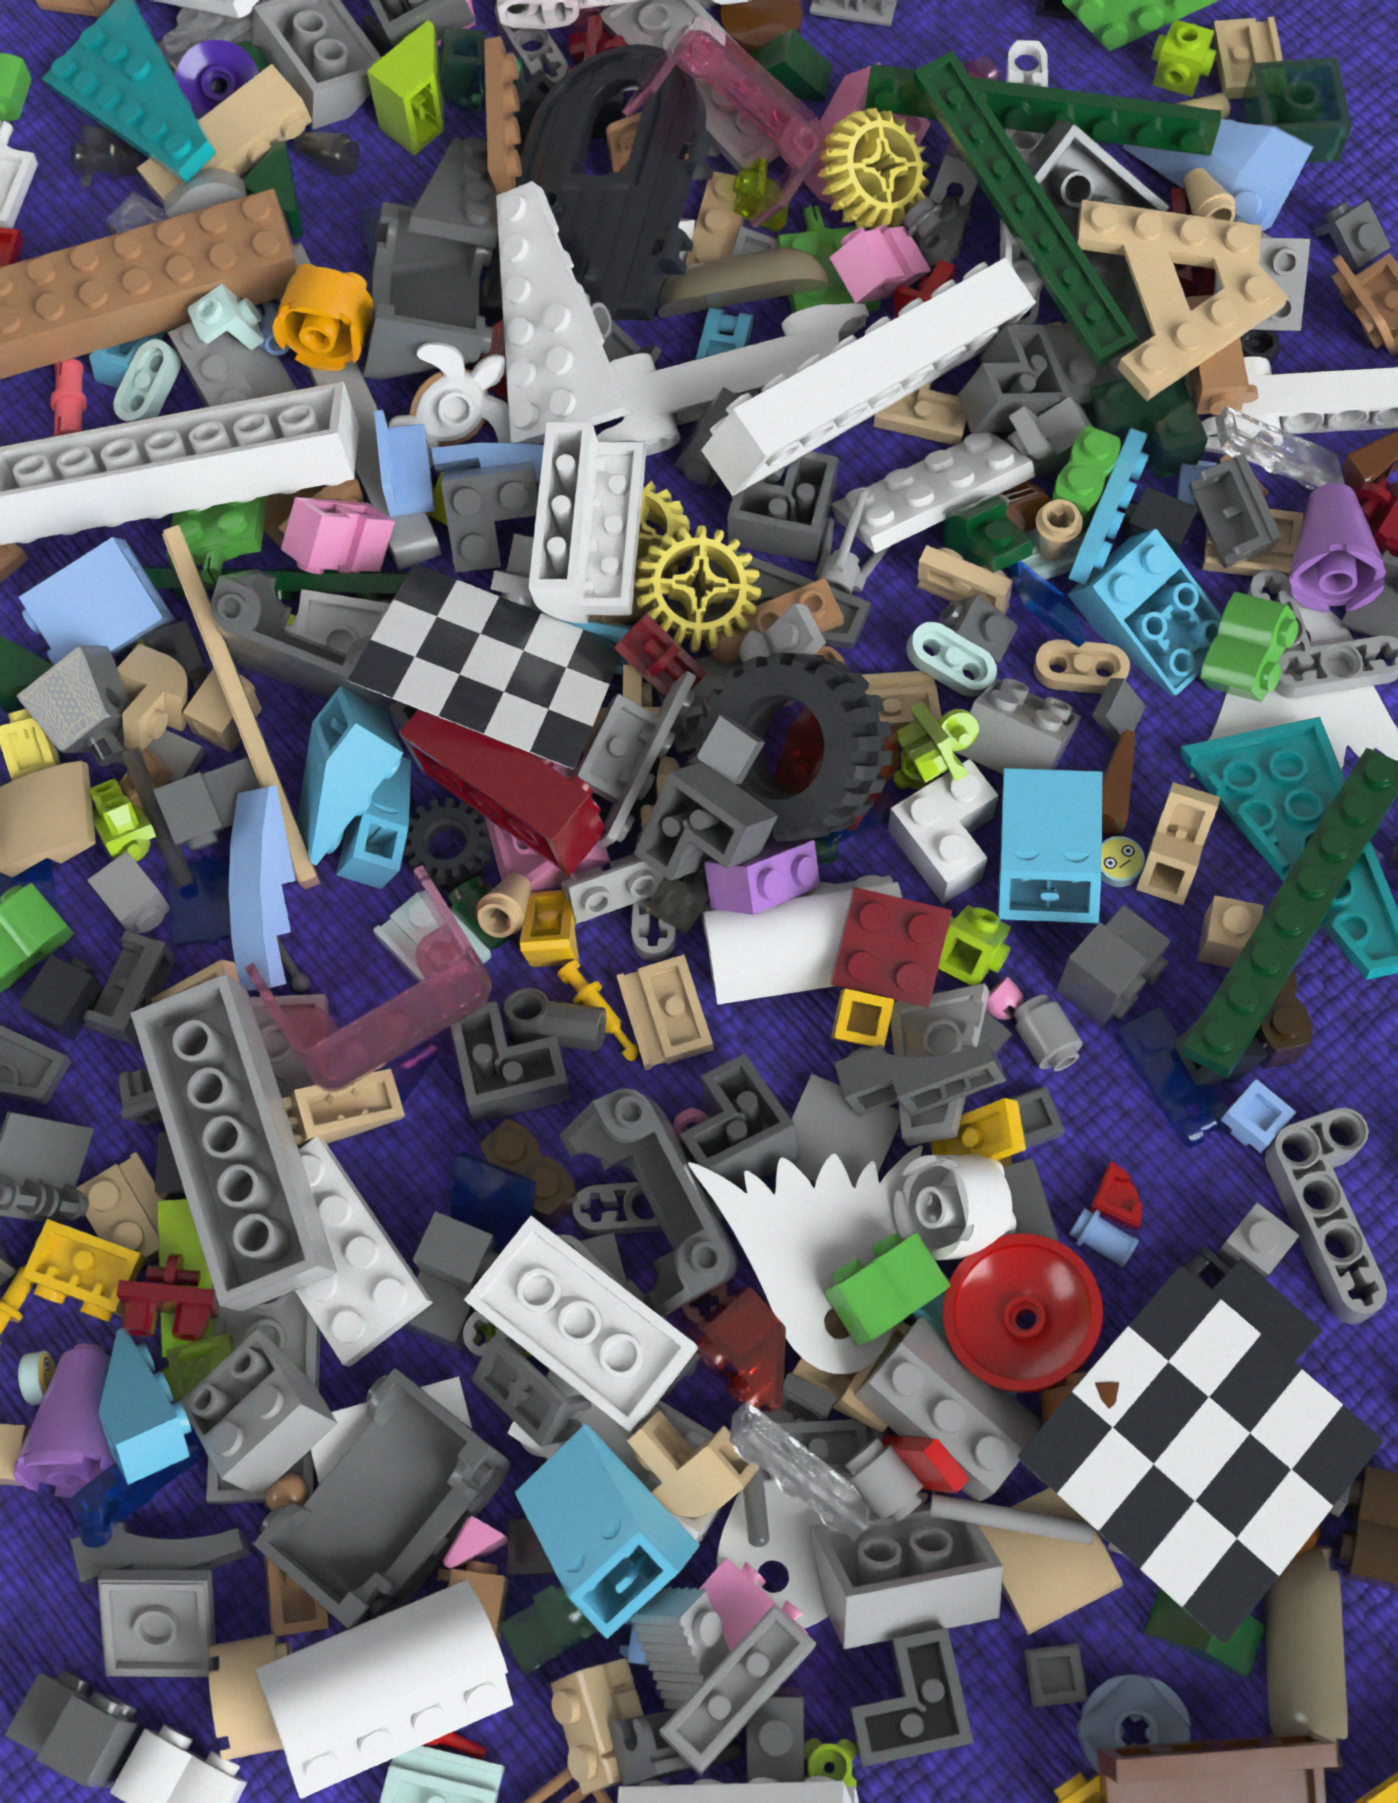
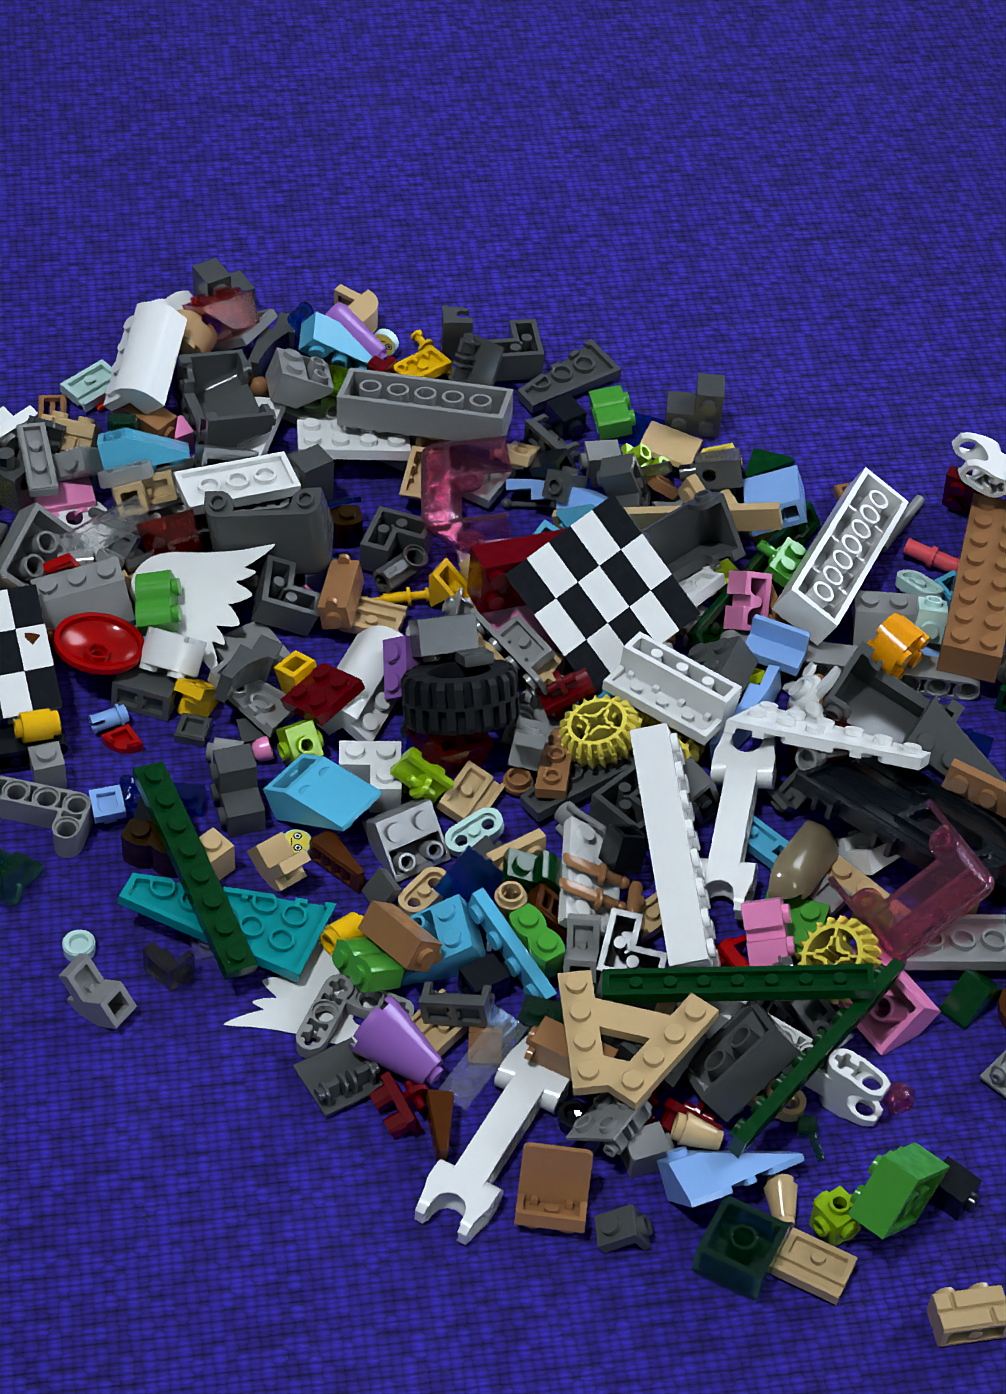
camera: 115 degrees right, 20 degrees down
(163, 1654) = (226, 308): none -> clear red slope
(199, 938) = (550, 460): none -> black brick
(251, 880) = (560, 482): none -> dark grey bracket
(678, 1054) = (340, 593): none -> medium nougat brick
(689, 1500) = (125, 474): none -> light grey beam
(846, 1426) = (104, 553): none -> light grey tile
(883, 449) = (623, 848): none -> black brick
(934, 463) = (635, 897): none -> medium nougat piece
(1203, 614) = (400, 936): none -> medium nougat brick
(1214, 709) = (340, 929): none -> yellow brick
(1234, 1279) = (37, 725): none -> yellow brick

